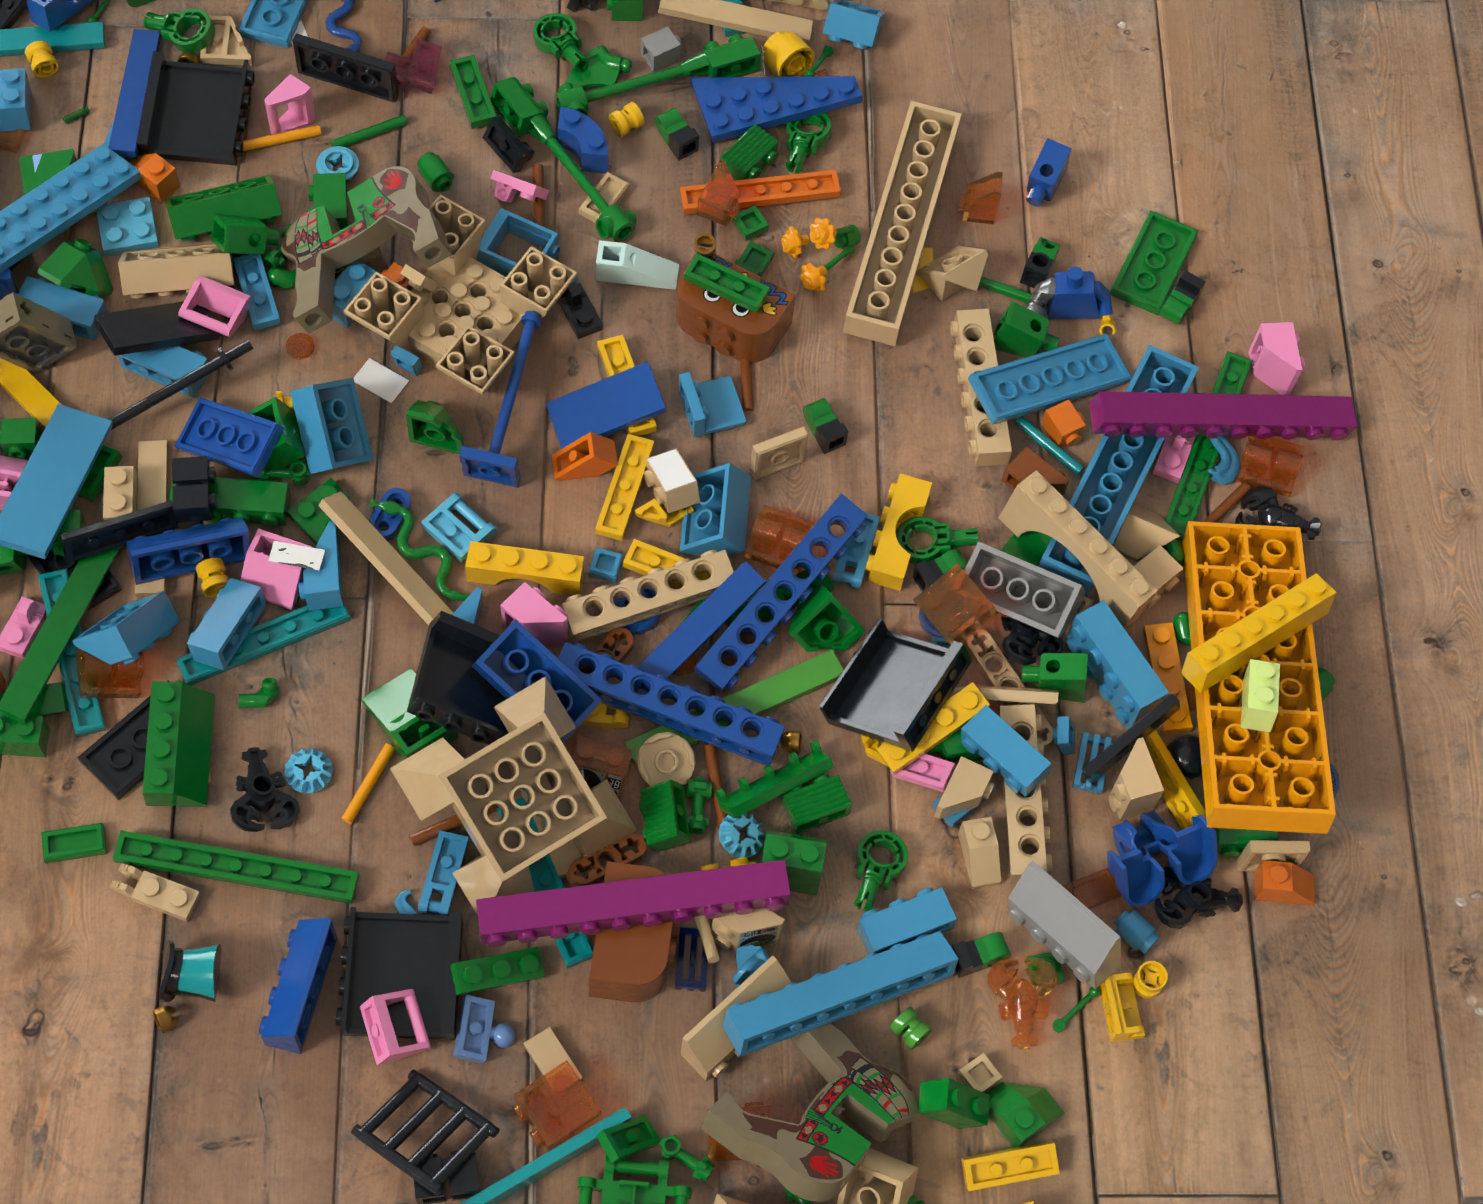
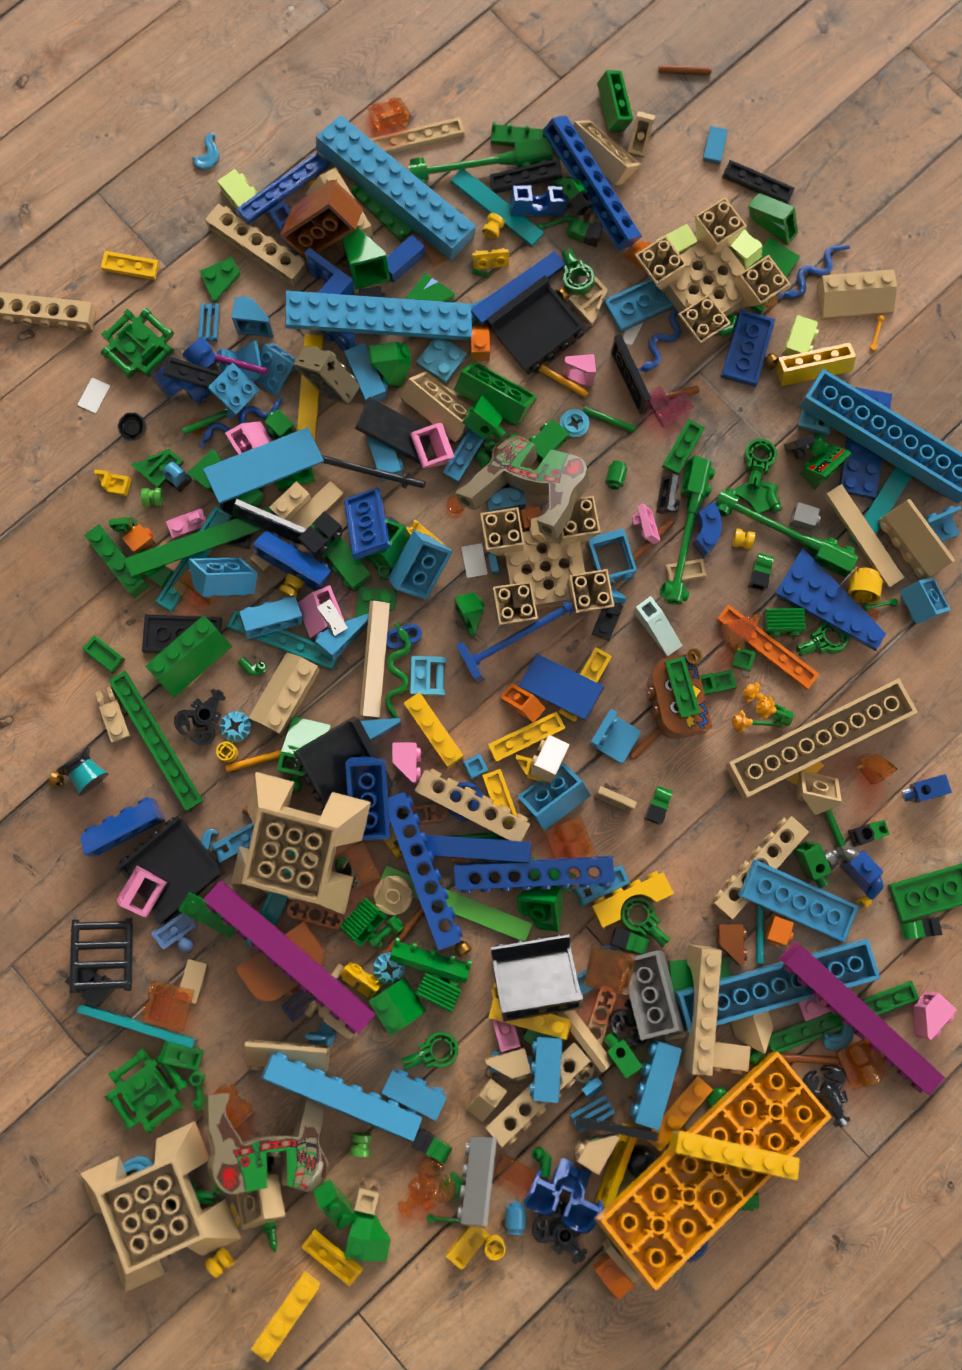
camera: 50 degrees right, 15 degrees up
(74, 91) = (492, 259): none -> yellow hinge
(325, 685) = (284, 693): none -> tan slope
(331, 806) = (227, 752): none -> yellow wheel
(1093, 851) = (544, 1159): none -> green arm
(1260, 695) = (692, 1190): yellowish green brick -> none

